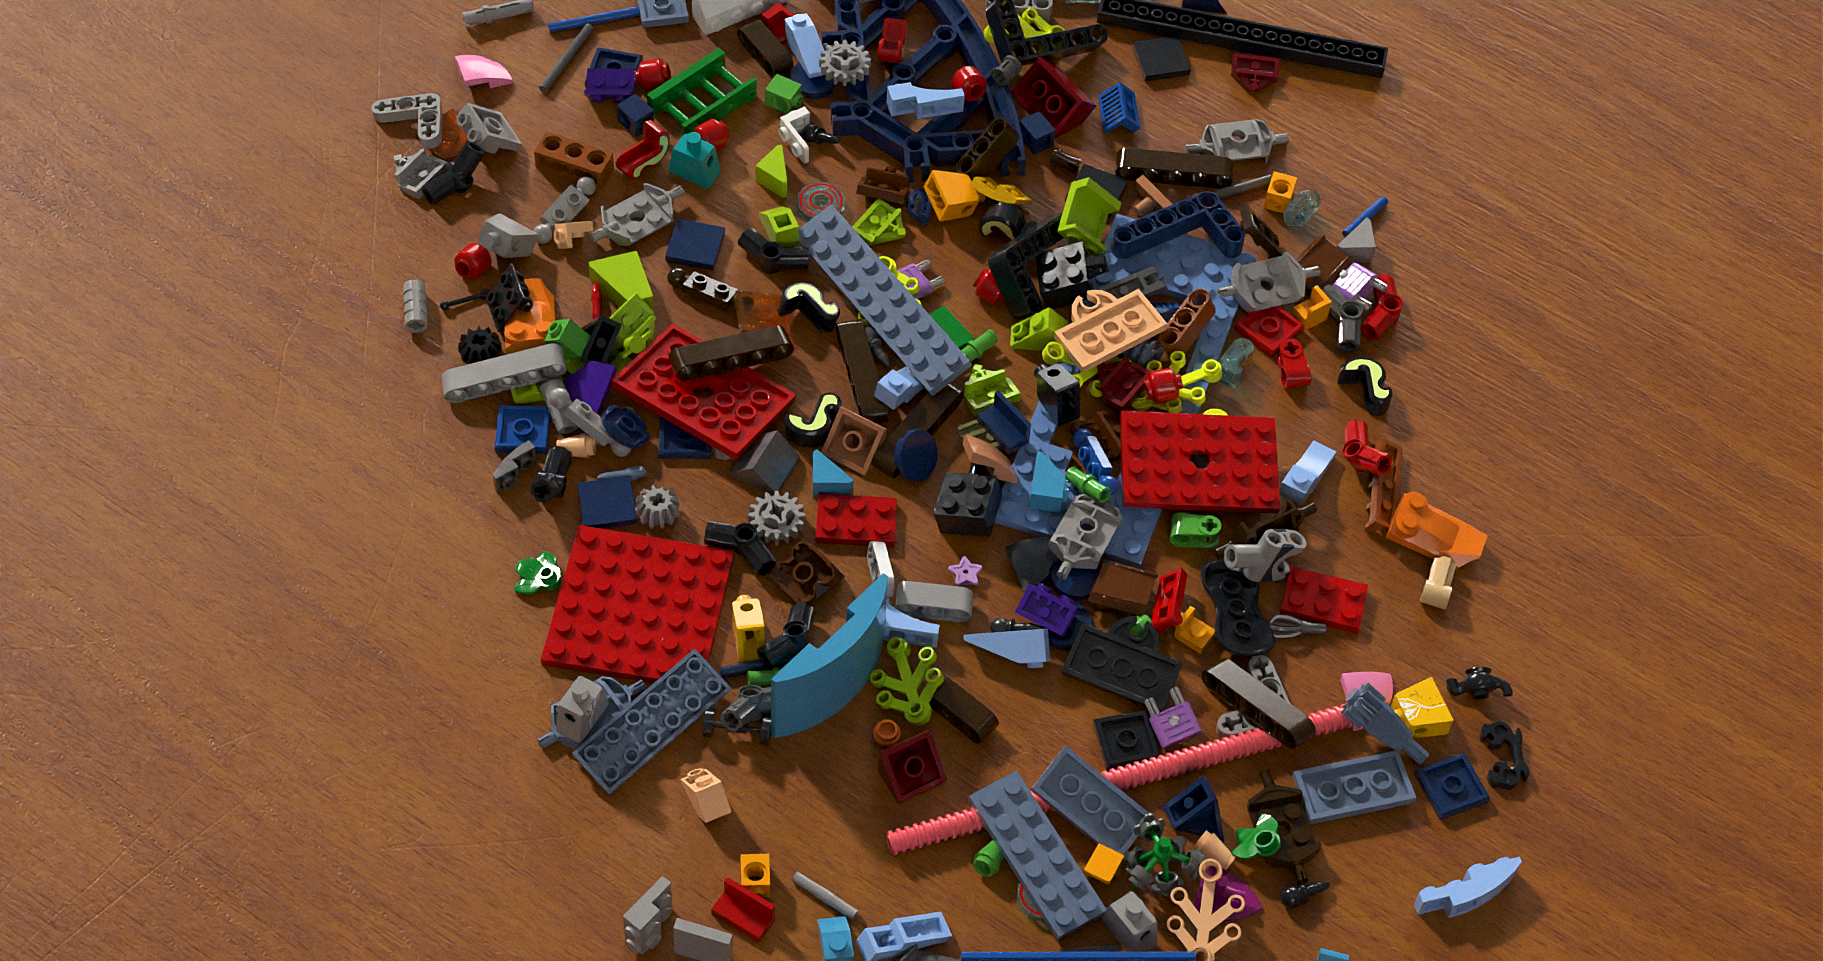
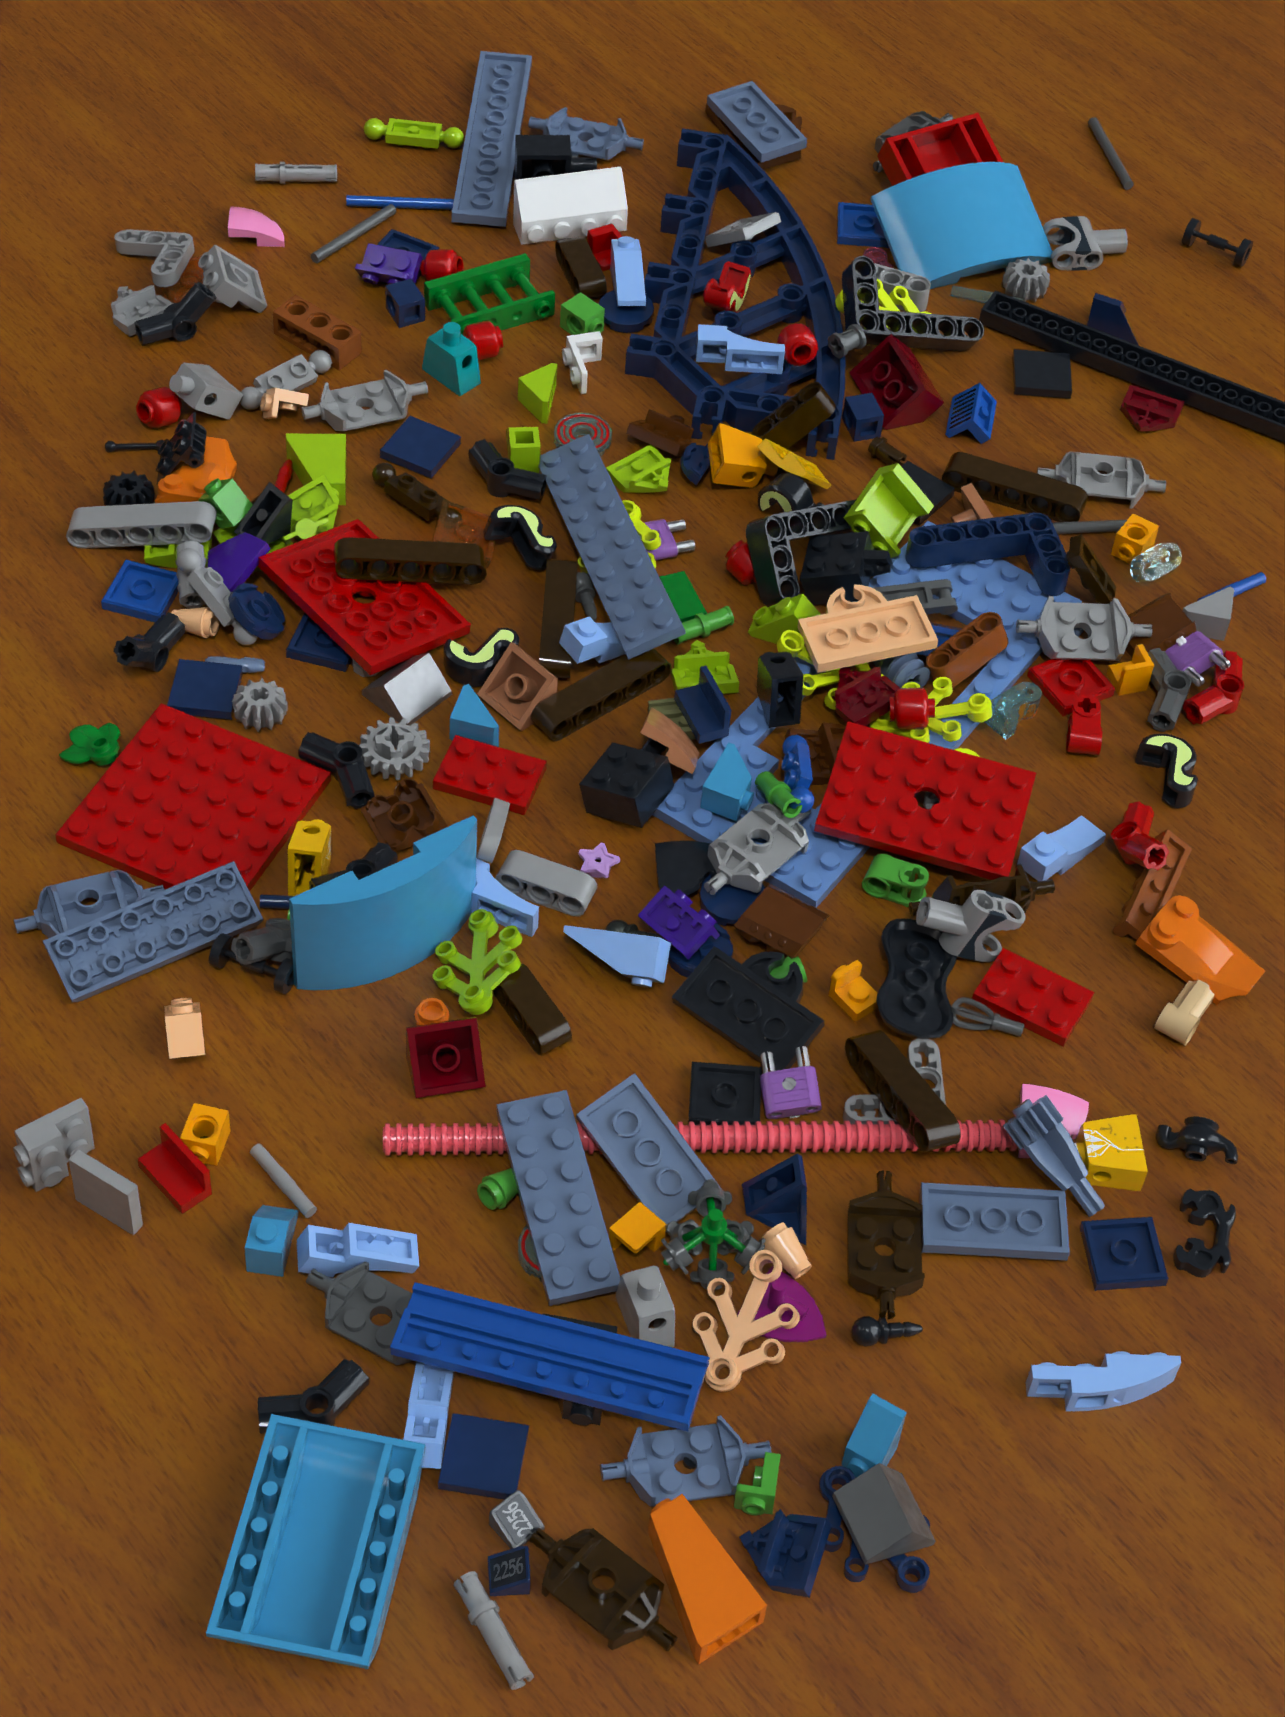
camera: 15 degrees right, 5 degrees down
(415, 306) = (75, 438): light grey axle -> none
(508, 471) = (121, 619): flat silver slope -> none
(585, 705) = (69, 891): light grey torso -> none
(645, 152) = (400, 342): red animal -> none
(816, 134) = (607, 367): black bar -> none
(845, 62) = (660, 294): light grey gear -> none
(916, 455) = (585, 717): dark blue tile -> none
(1169, 600) = (833, 949): red plate -> none
(1258, 841) = (846, 1252): green plate -> none

